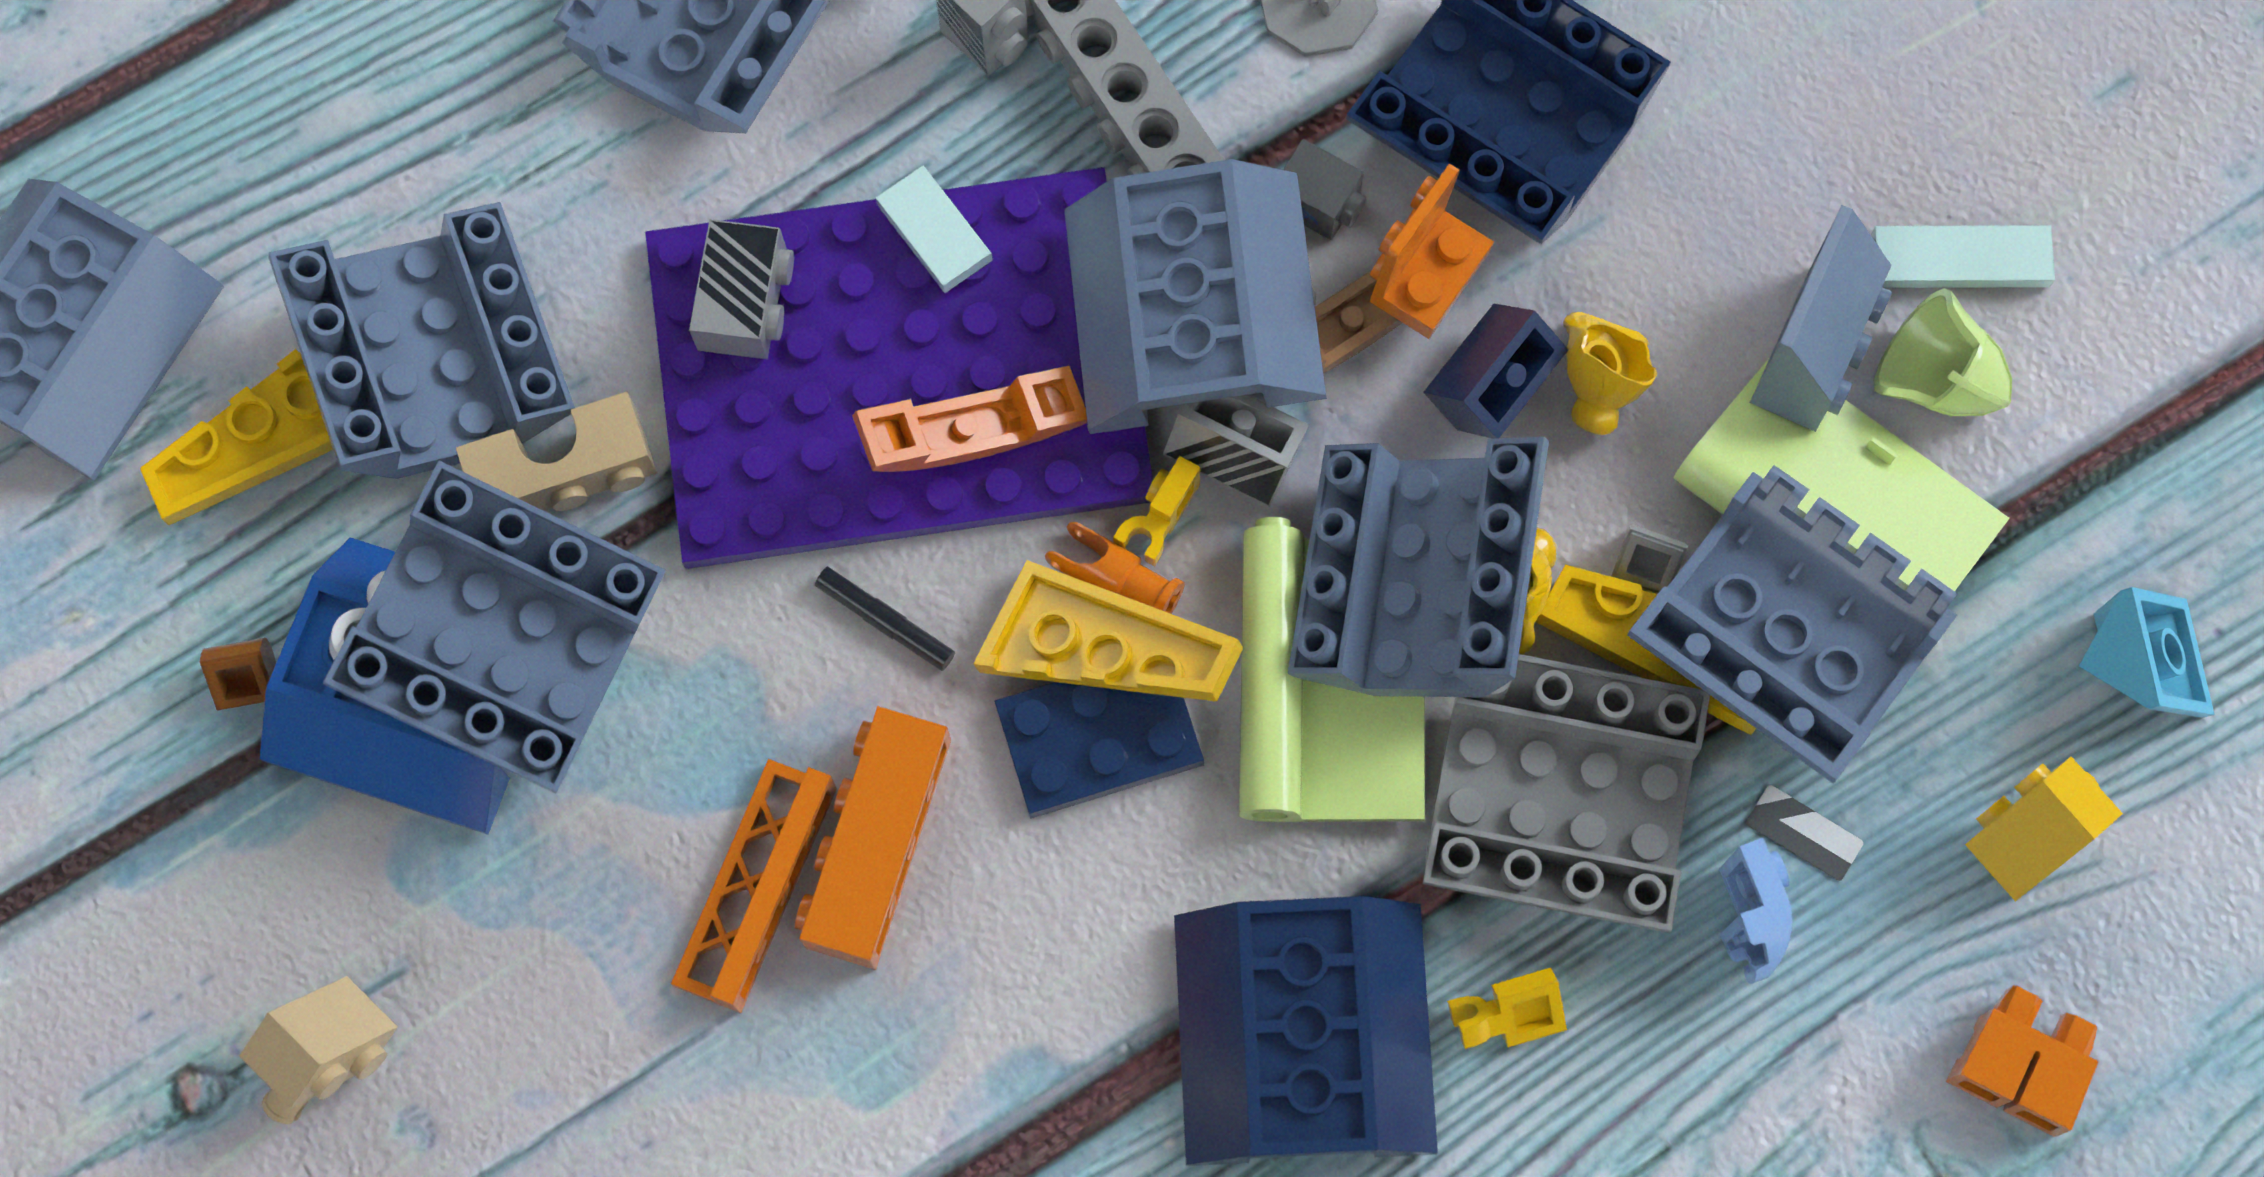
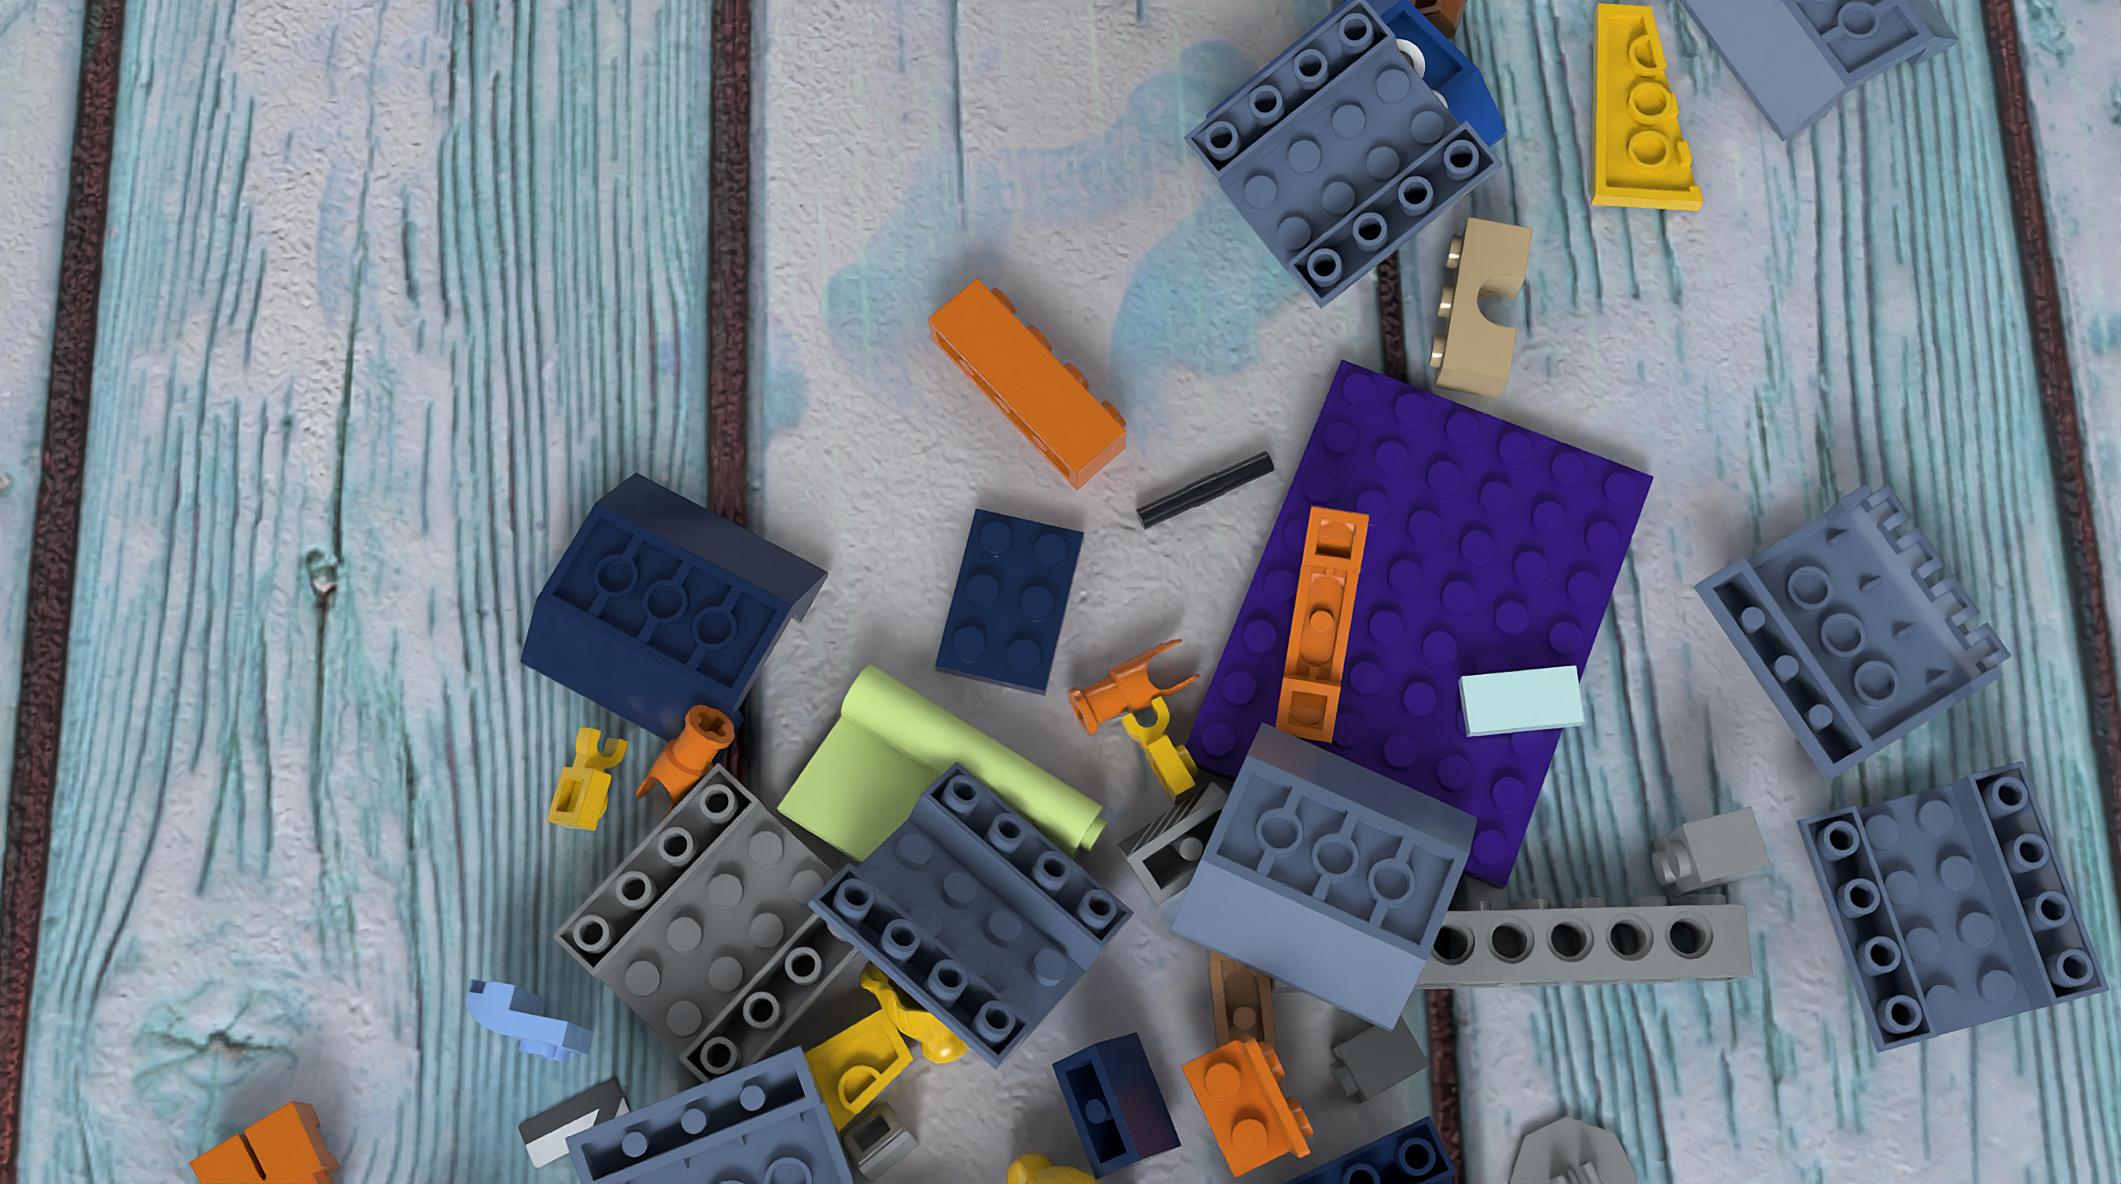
camera: 120 degrees right, 0 degrees up
(422, 344) = (1642, 242): sand blue slope -> none
(740, 289) = (1549, 509): brick -> none
(772, 890) = (1039, 292): orange fence -> none
(1096, 638) = (1088, 628): yellow wing -> none
(1433, 916) = (690, 755): none -> orange piece

